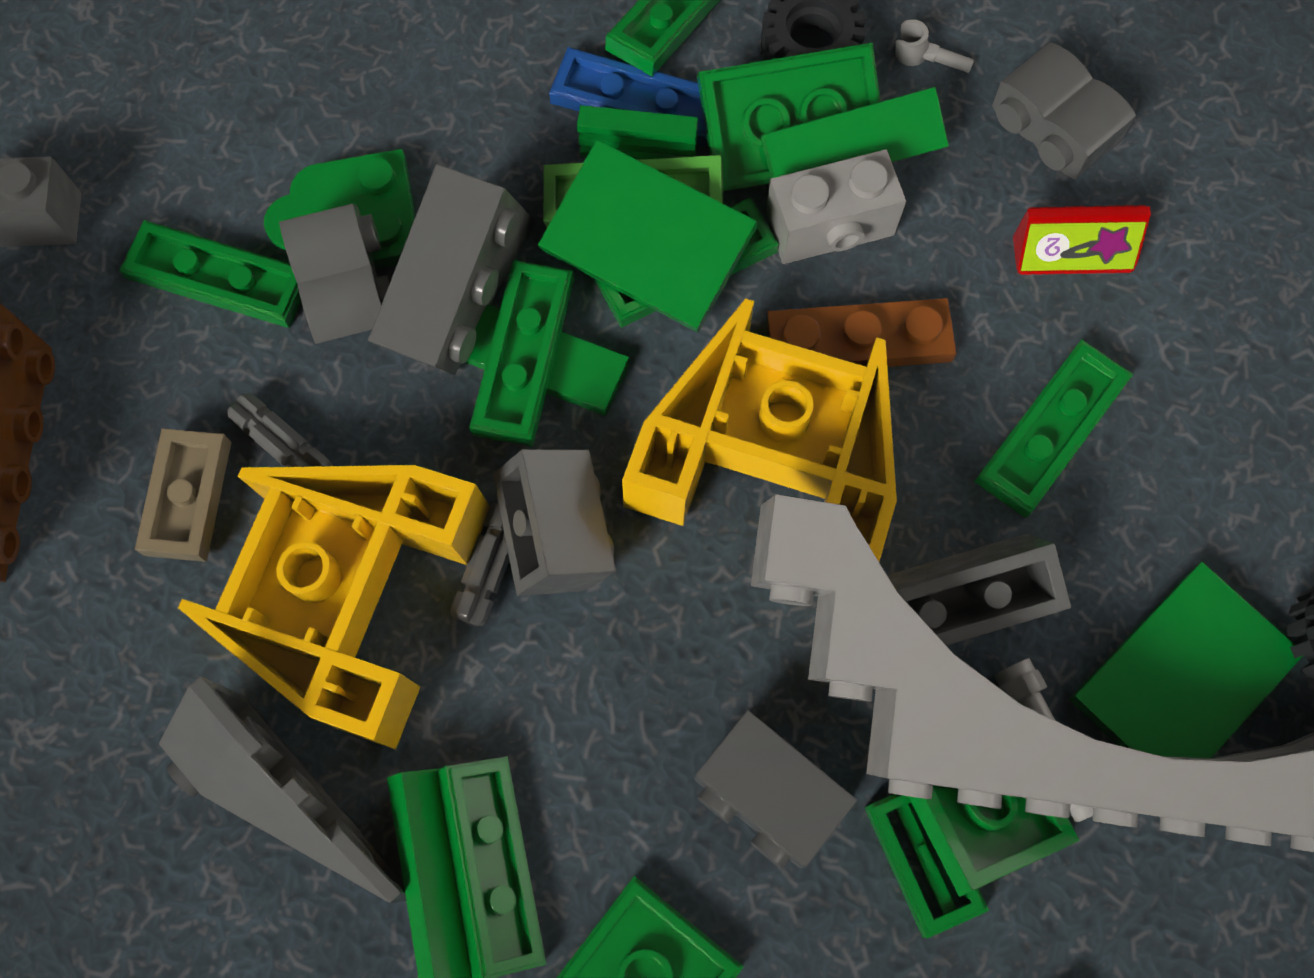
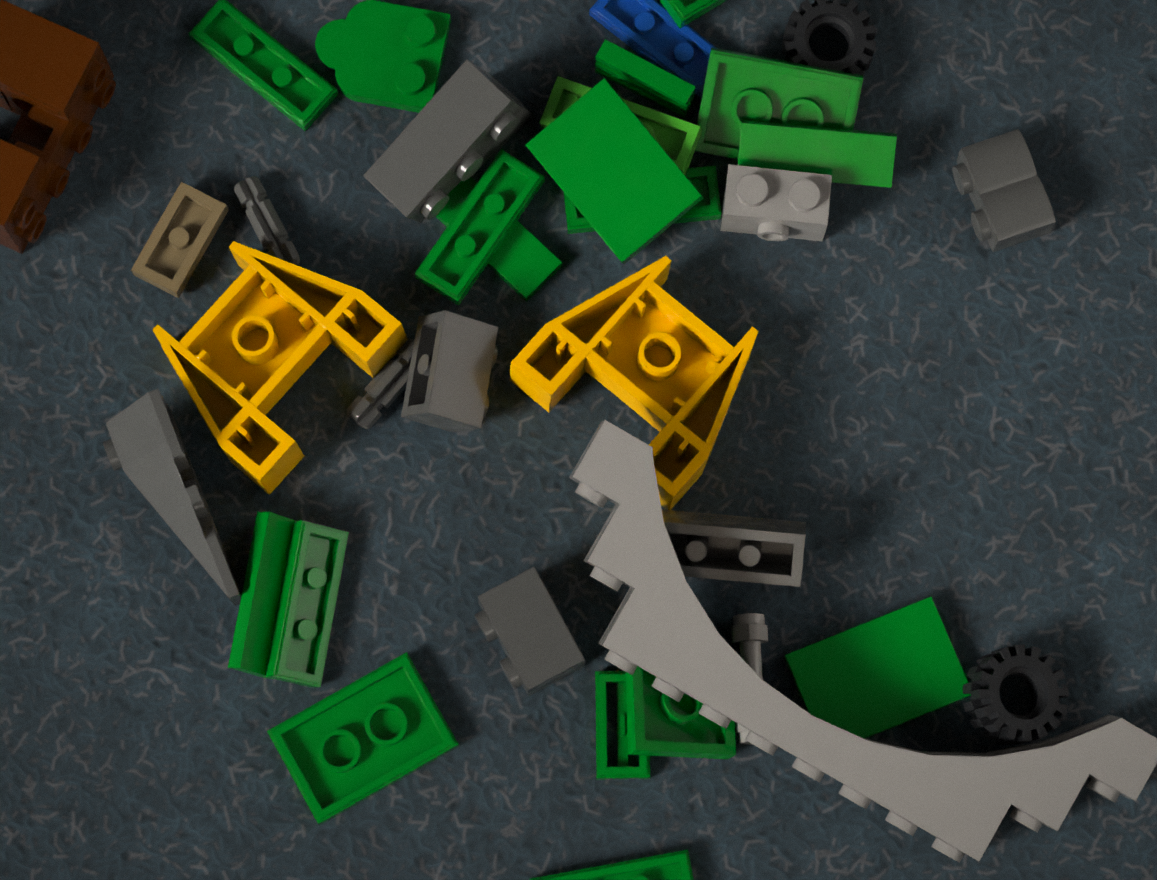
camera: 20 degrees right, 5 degrees up
(336, 270) = (359, 106): dark grey brick -> none
(913, 331) = (734, 308): dark orange plate -> none
(920, 49) = (924, 90): light grey hand -> none
(1053, 428) = (872, 449): green tile -> none
(1080, 239) = (965, 307): slope -> none

